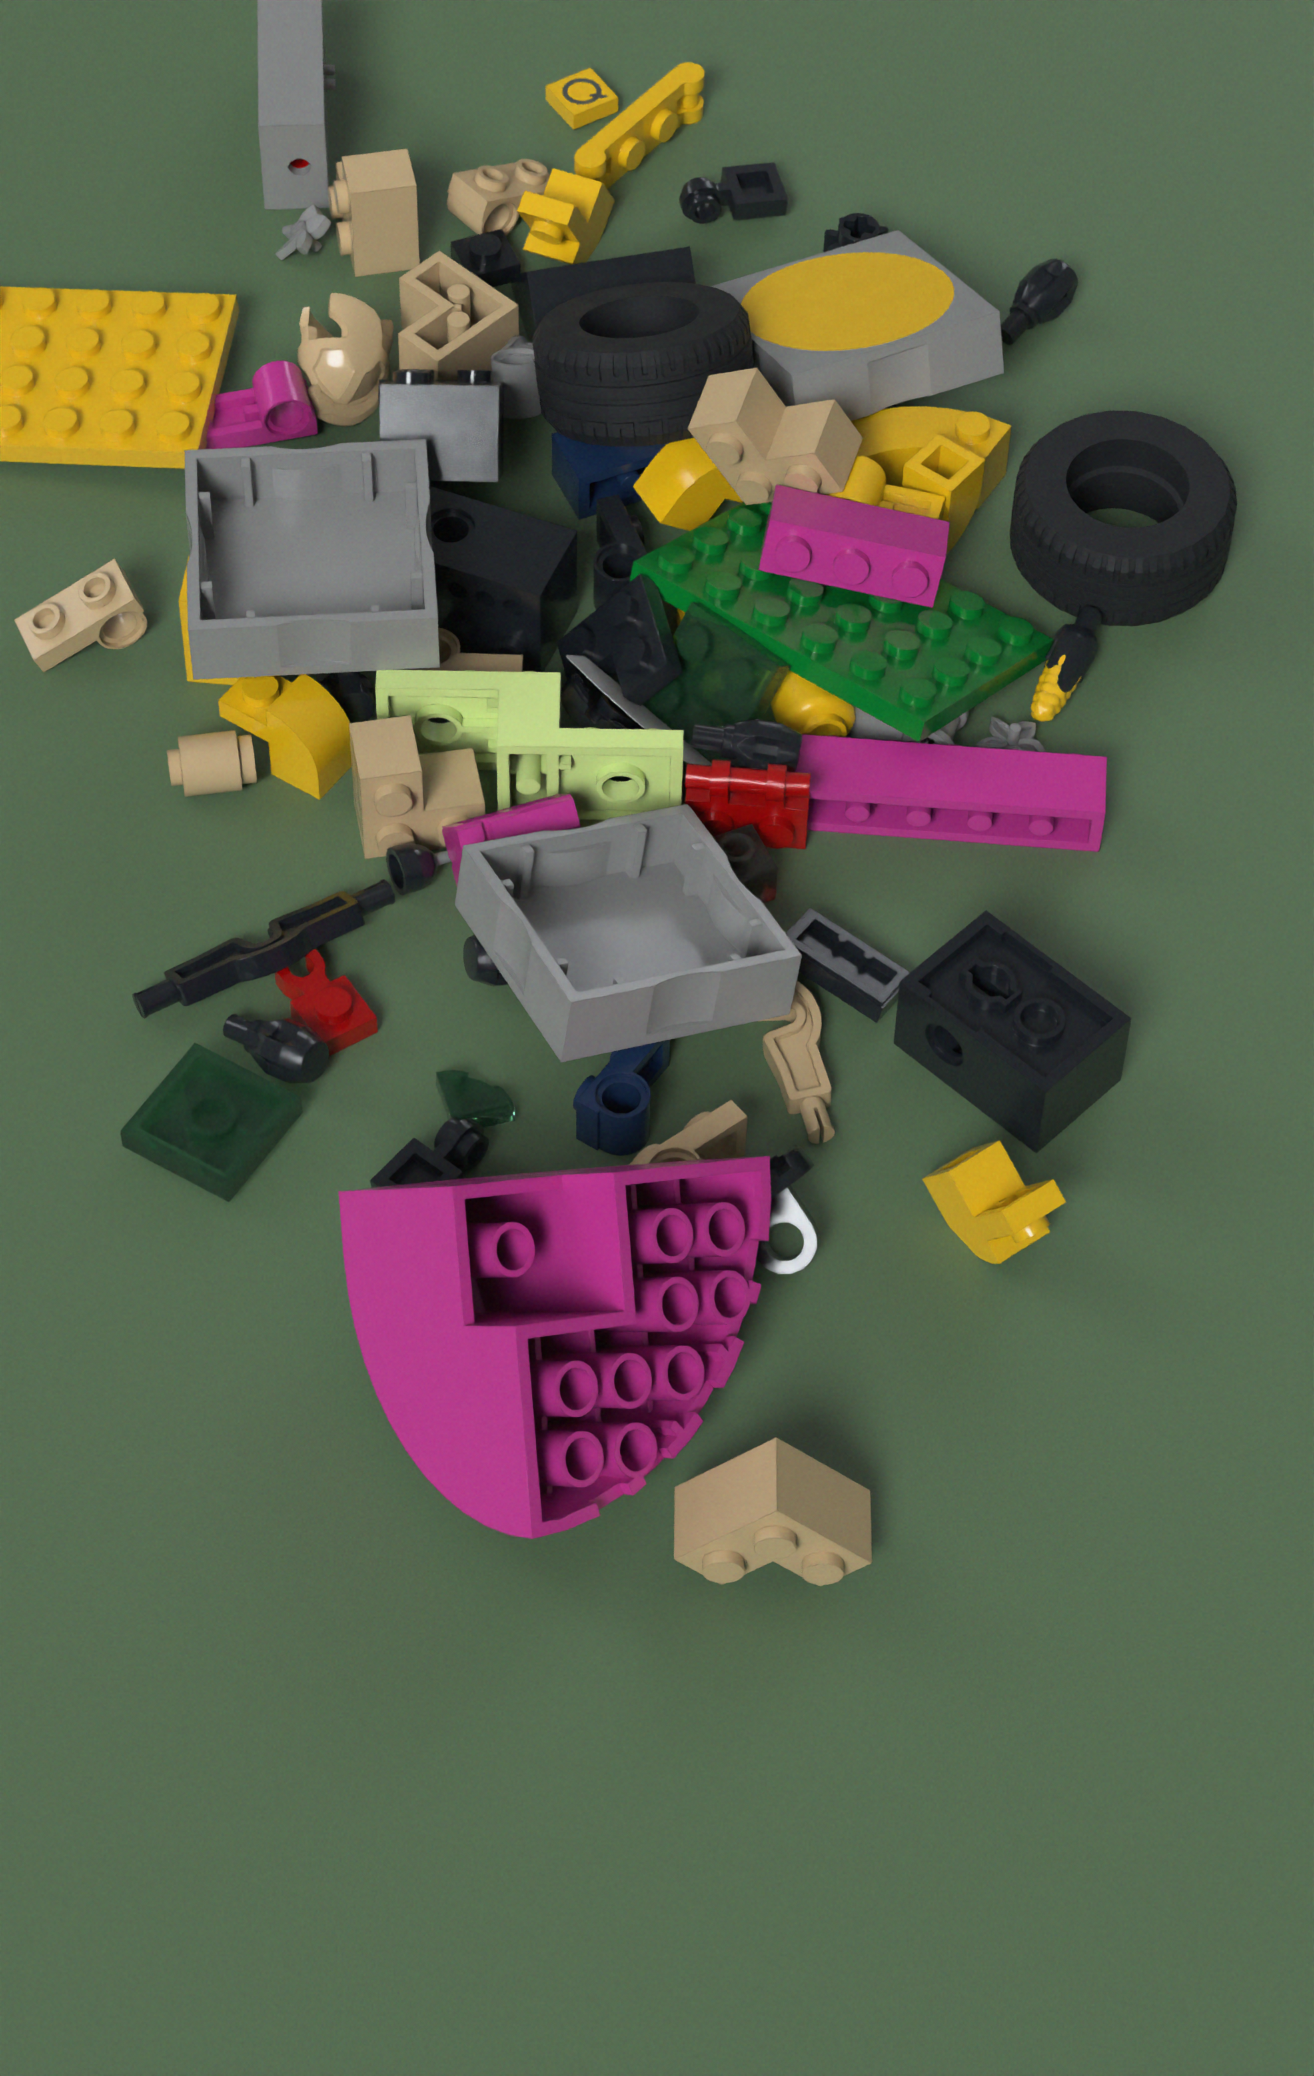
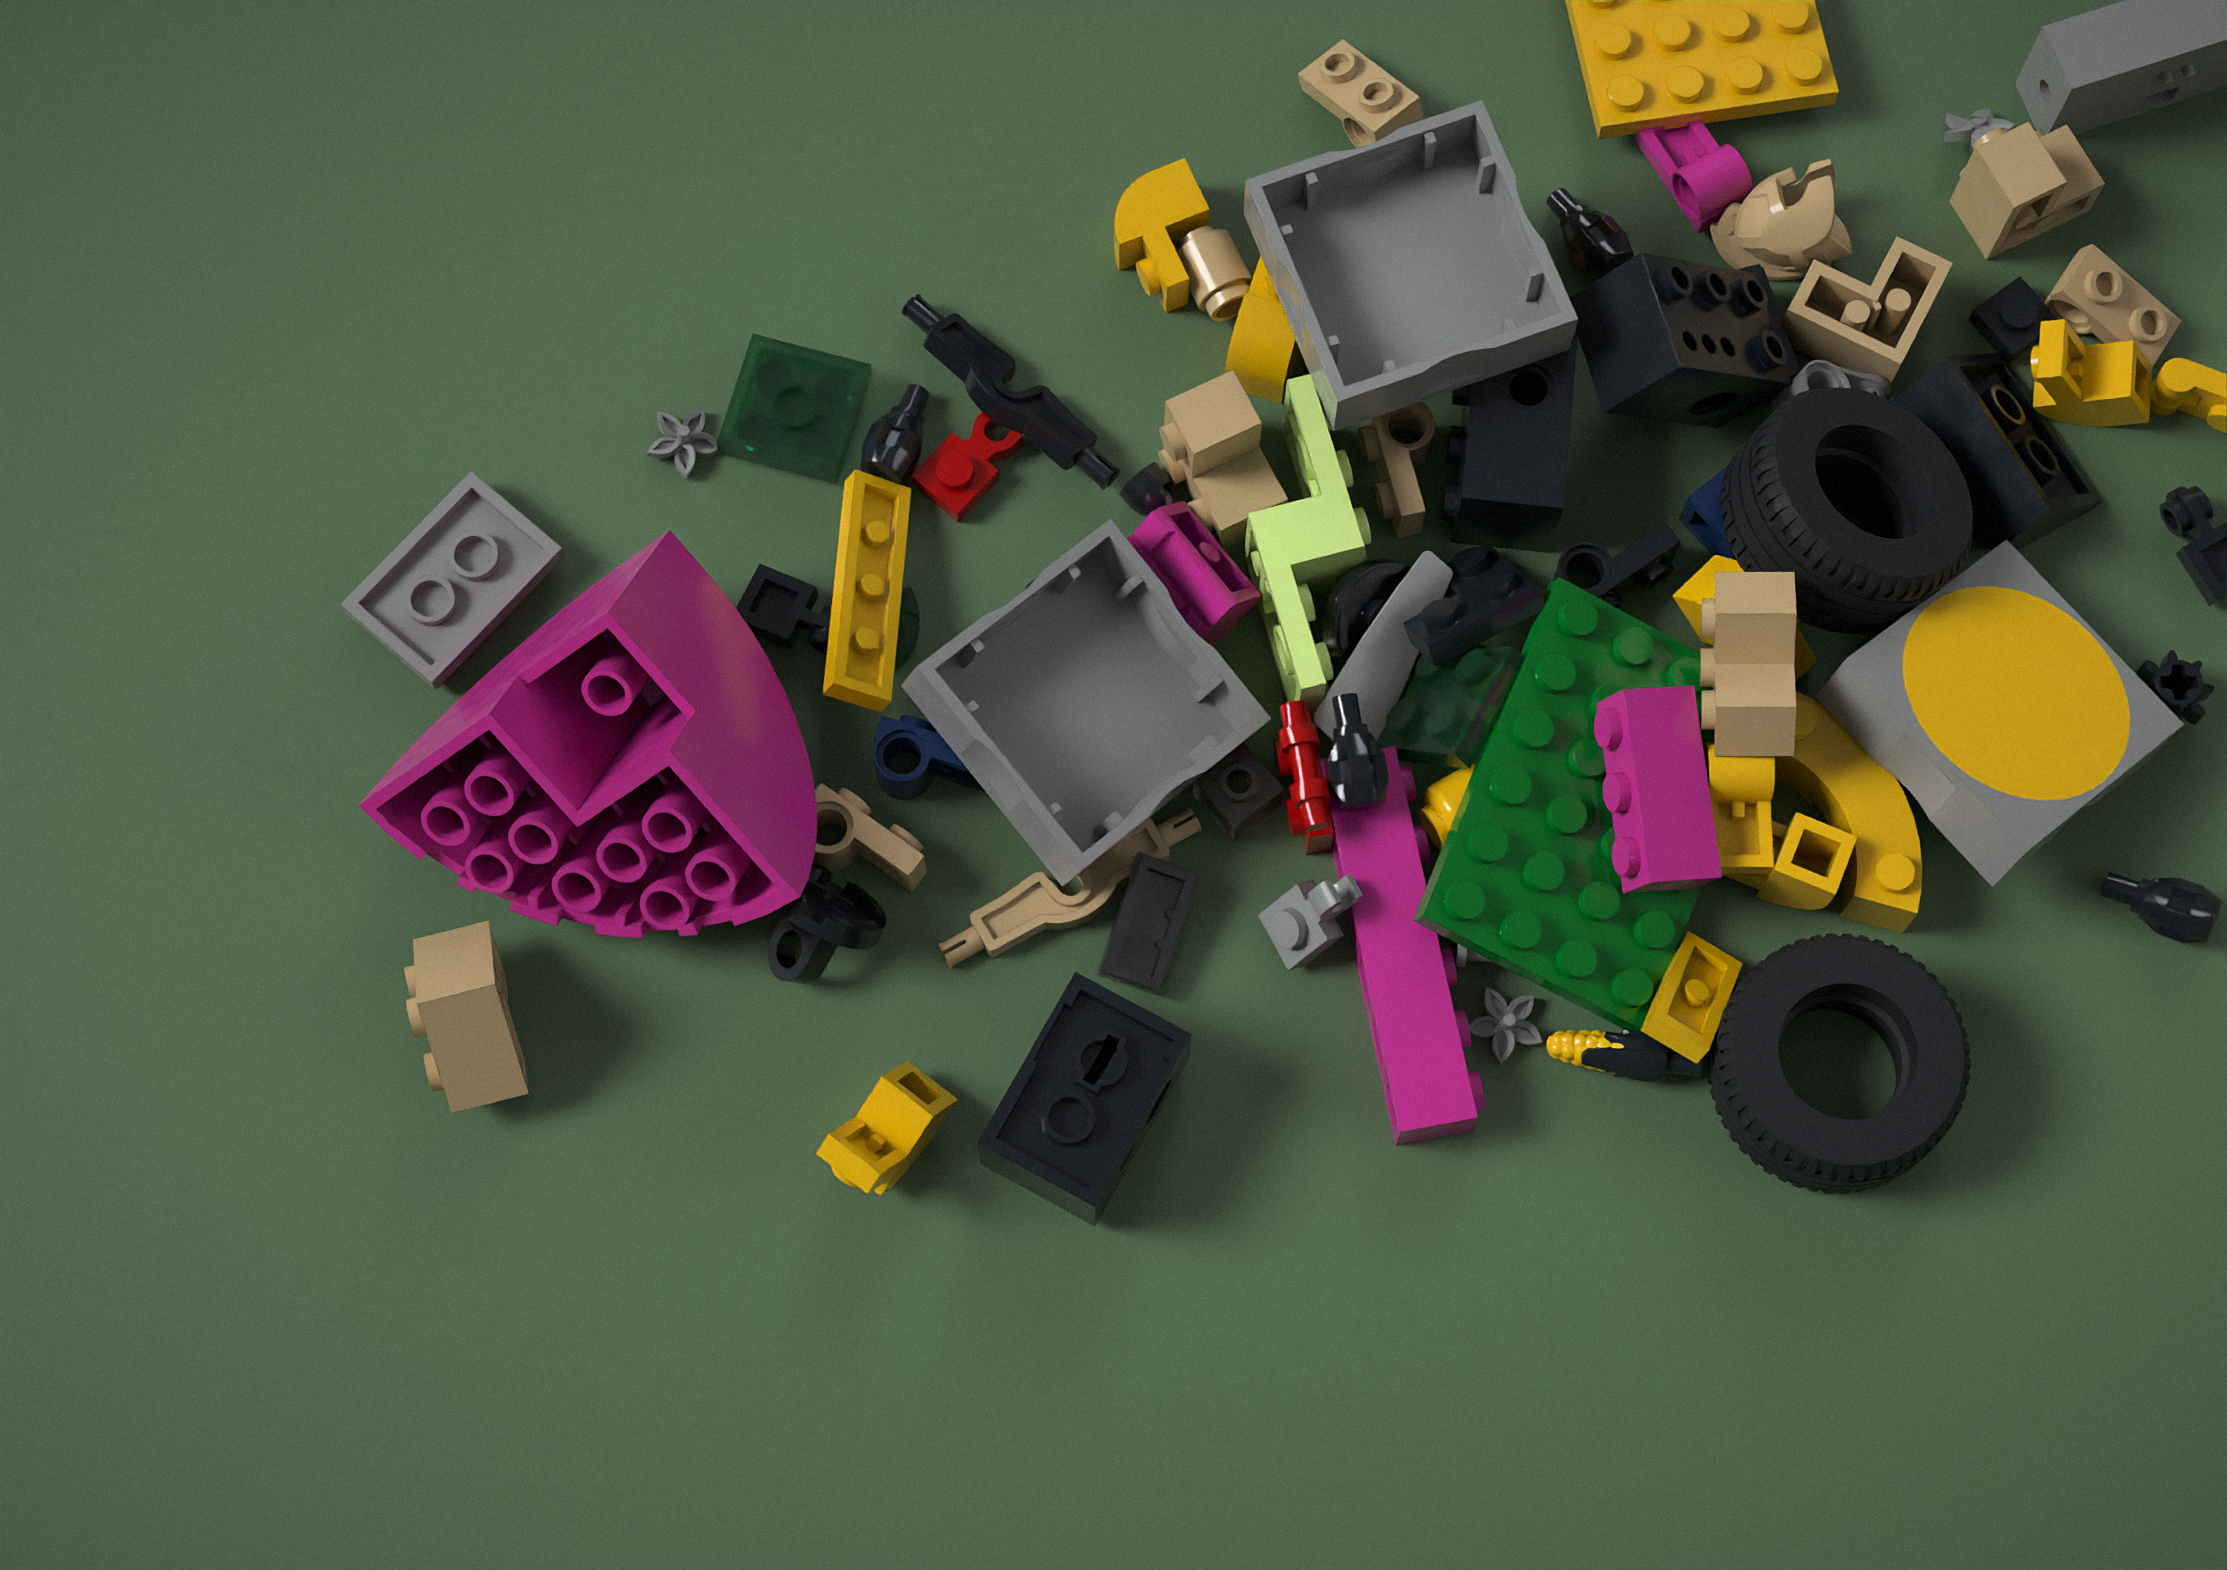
camera: 75 degrees right, 20 degrees up
(145, 802) = (1150, 225): none -> yellow brick
(204, 1229) = (683, 440): none -> light grey plant
(282, 1455) = (453, 580): none -> light grey plate
(441, 1088) = (867, 591): none -> yellow plate
(880, 845) = (1304, 918): none -> light grey plate
(1039, 598) = (1692, 997): none -> yellow plate

